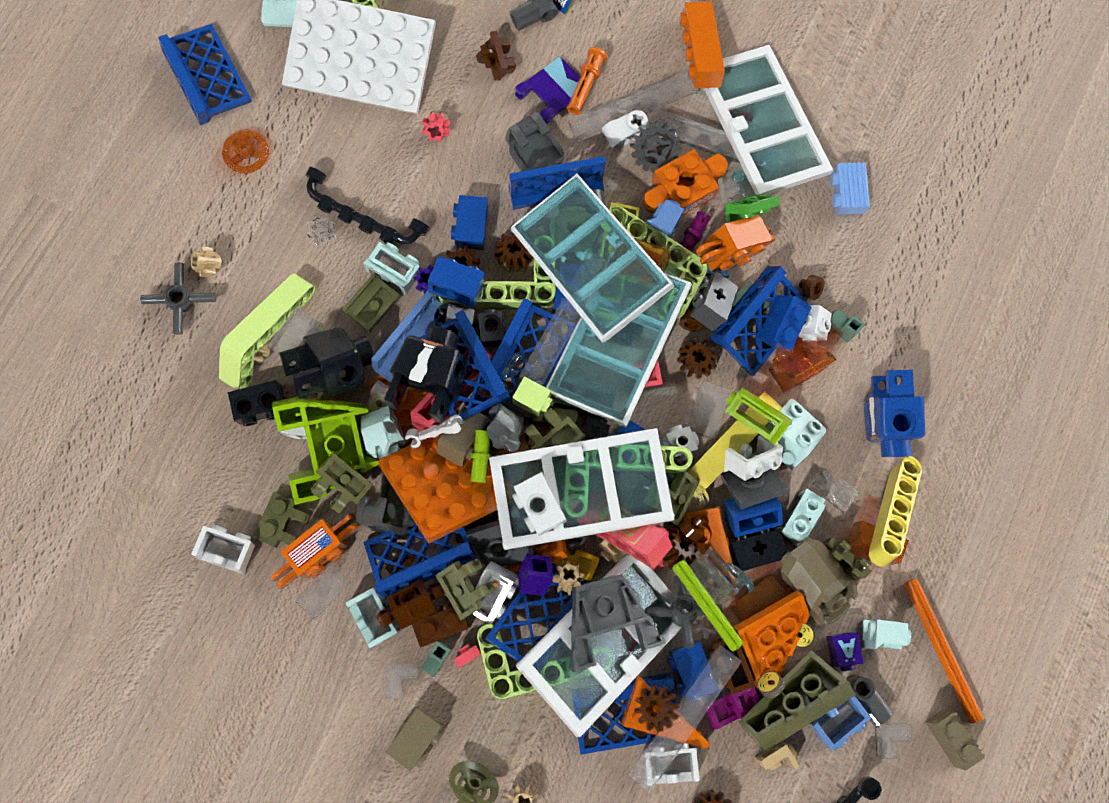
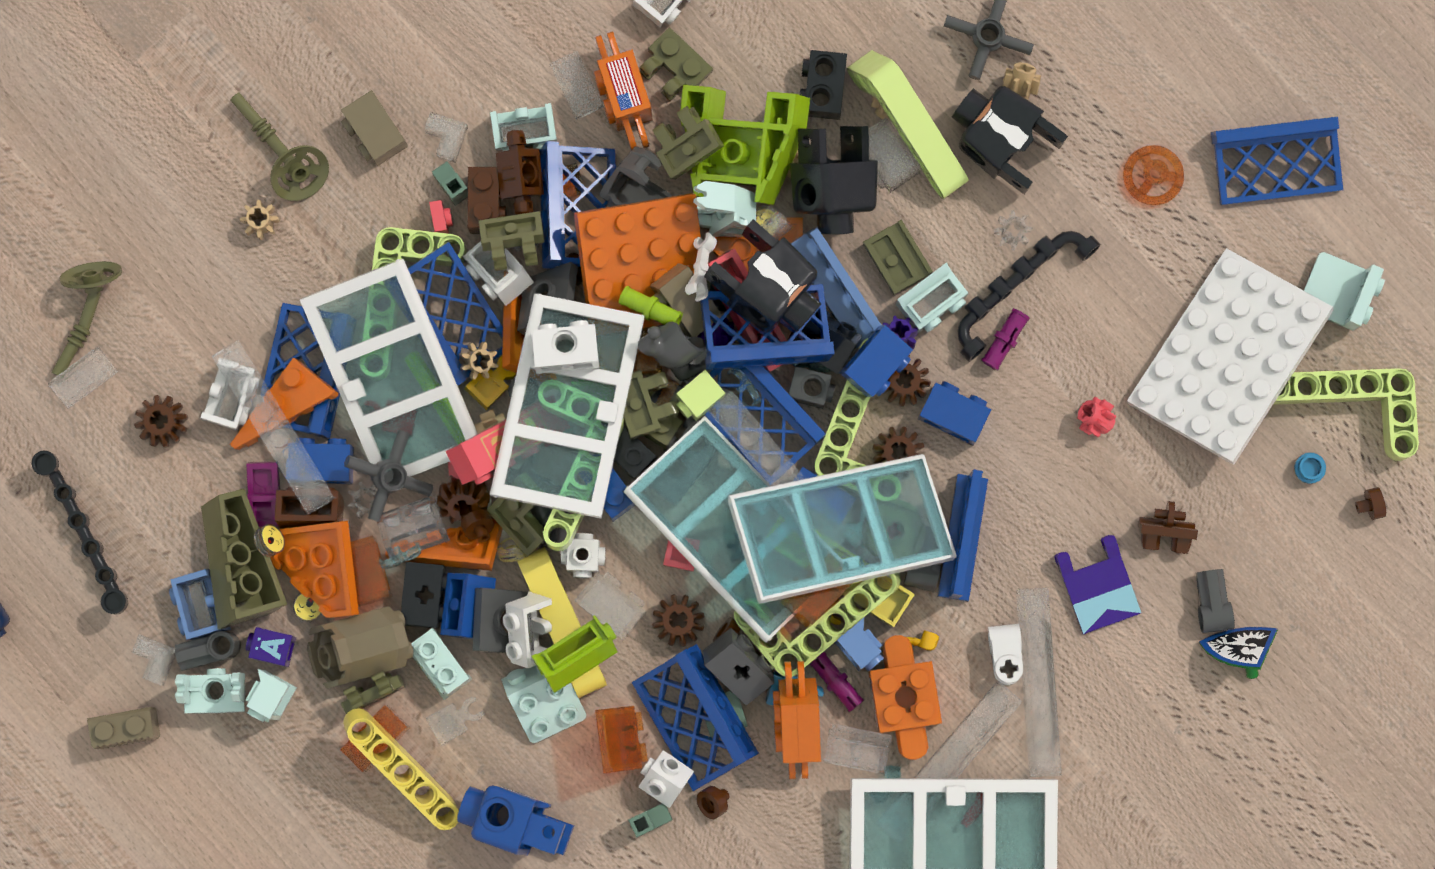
camera: 120 degrees right, 5 degrees up
(248, 260) = (1000, 129): none -> black piece
(403, 208) = (1005, 339): none -> magenta pin
(533, 144) = (1021, 529): dark grey piece -> none
(535, 574) = (496, 322): dark purple brick -> none
(590, 72) = (1102, 640): orange pin -> none
(604, 608) = (426, 381): dark grey wing -> none
(638, 184) = (928, 640): none -> yellow hand
(652, 137) = (979, 683): dark grey gear -> none
(653, 698) = (291, 385): reddish brown gear -> none
(703, 45) = (1081, 795): orange brick -> none
(708, 605) = (383, 501): lime axle -> none
(750, 207) = (835, 755): bright green bracket -> none
(773, 757) = (190, 514): tan bracket -> none
(784, 322) = (677, 739): blue brick -> none
(908, 692) = (195, 695): none -> light aqua piece
(943, 651) = (224, 764): orange axle -> none

